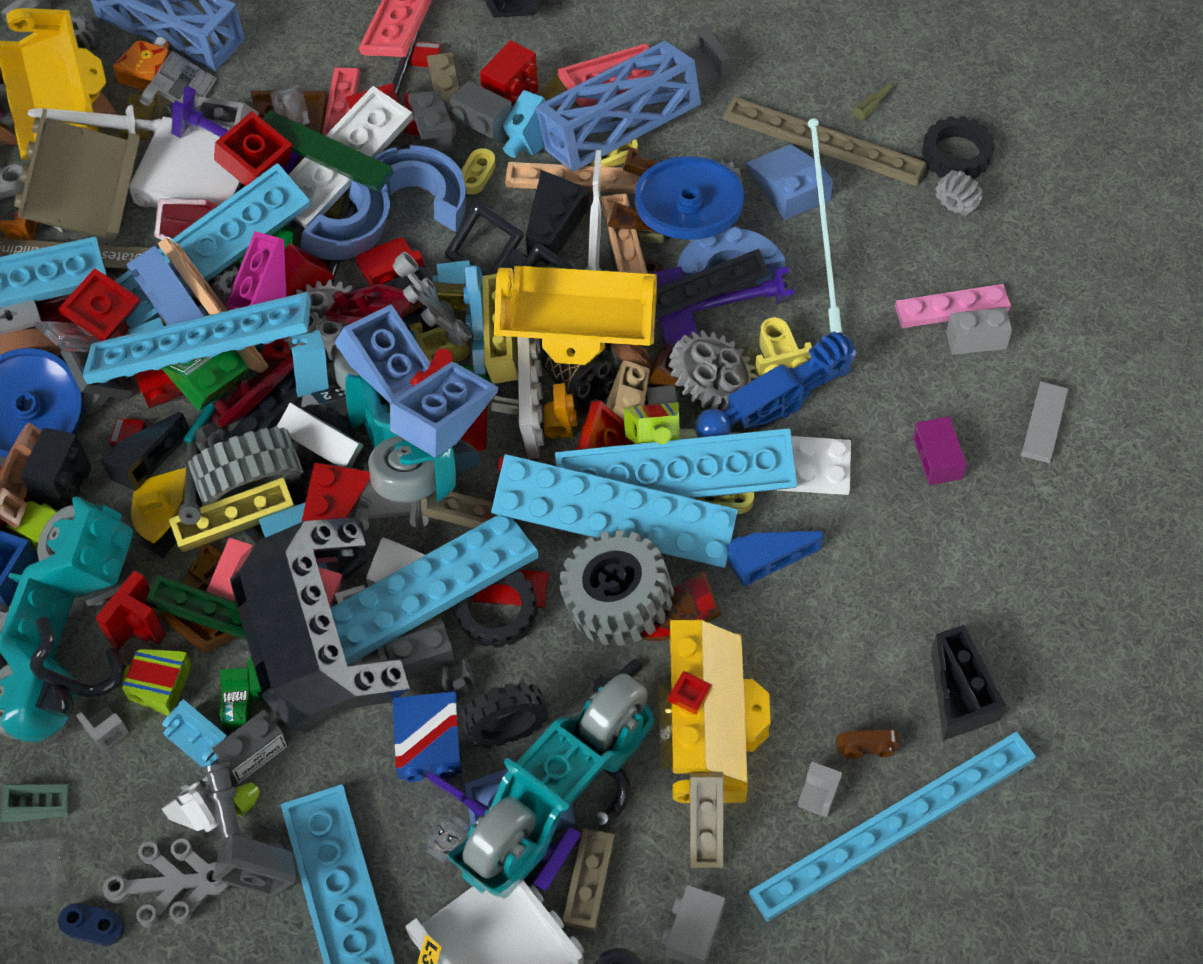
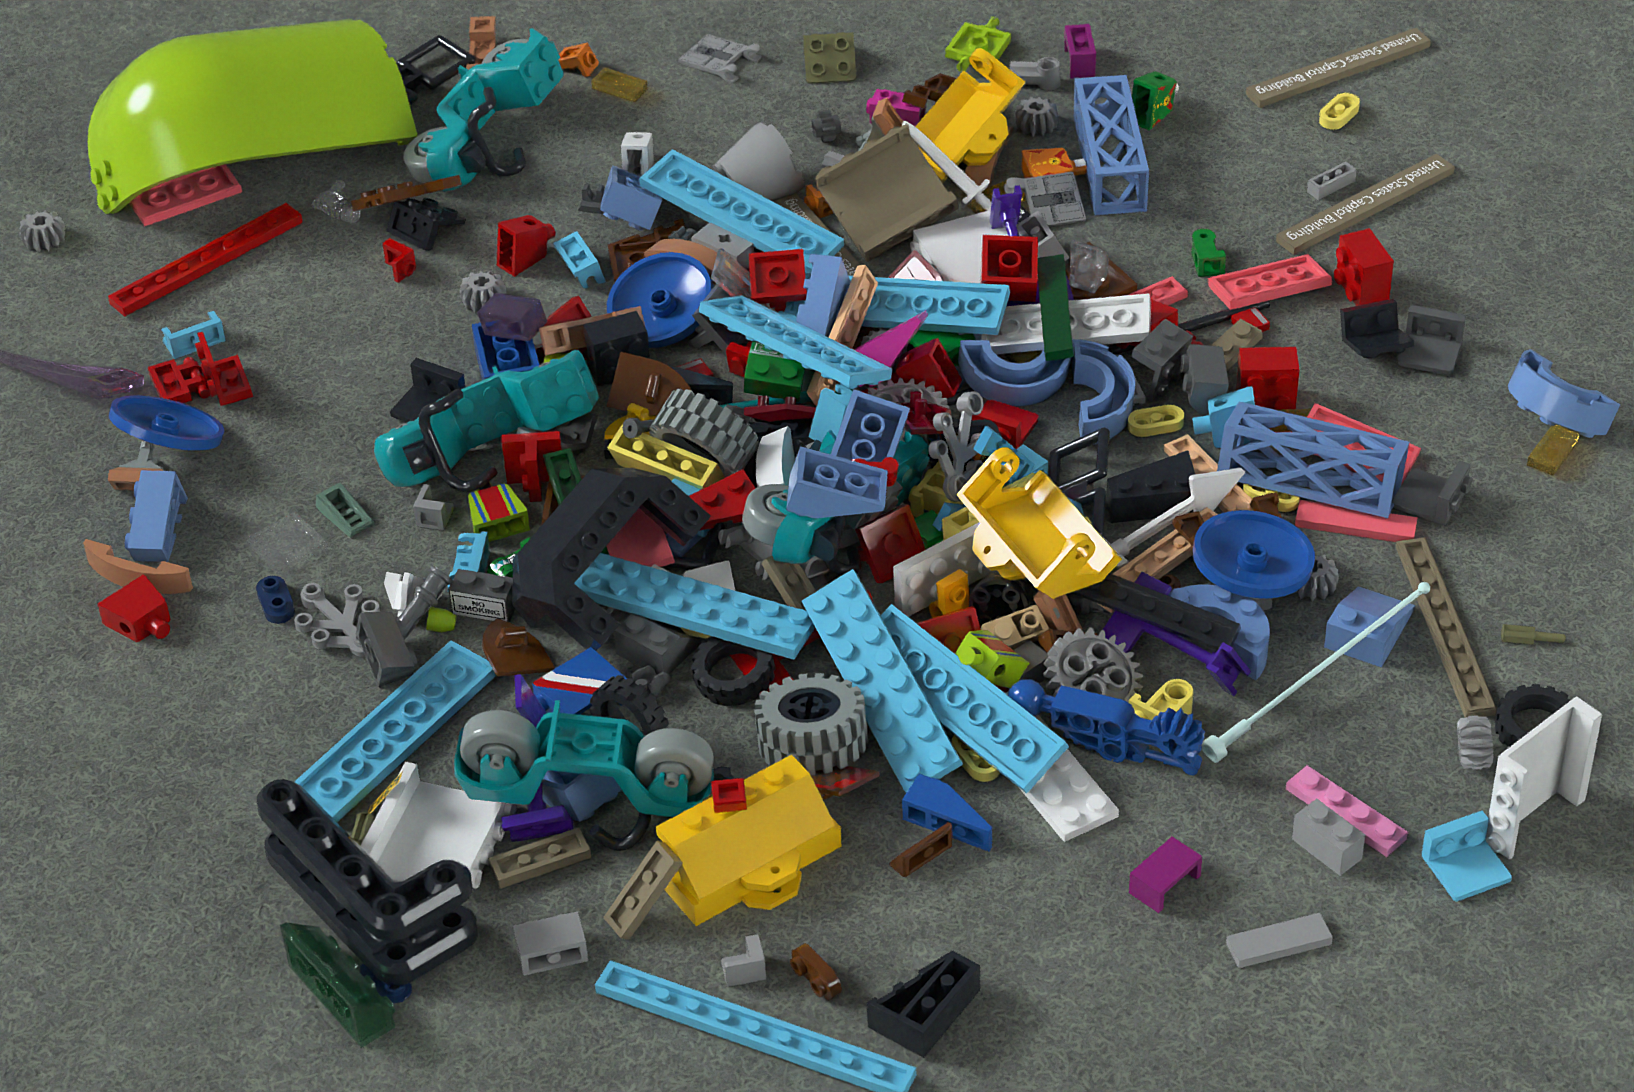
camera: 55 degrees right, 15 degrees down
(129, 473) = (643, 383): none -> reddish brown shield
(331, 760) = (514, 650): none -> reddish brown shield
(333, 33) = (1205, 256): none -> green leg
(676, 130) = (1355, 523): none -> coral tile
(791, 592) = (923, 851): none -> reddish brown slope
(1043, 190) = (1543, 762): none -> white panel
(1055, 269) = (1463, 858): none -> medium azure bracket

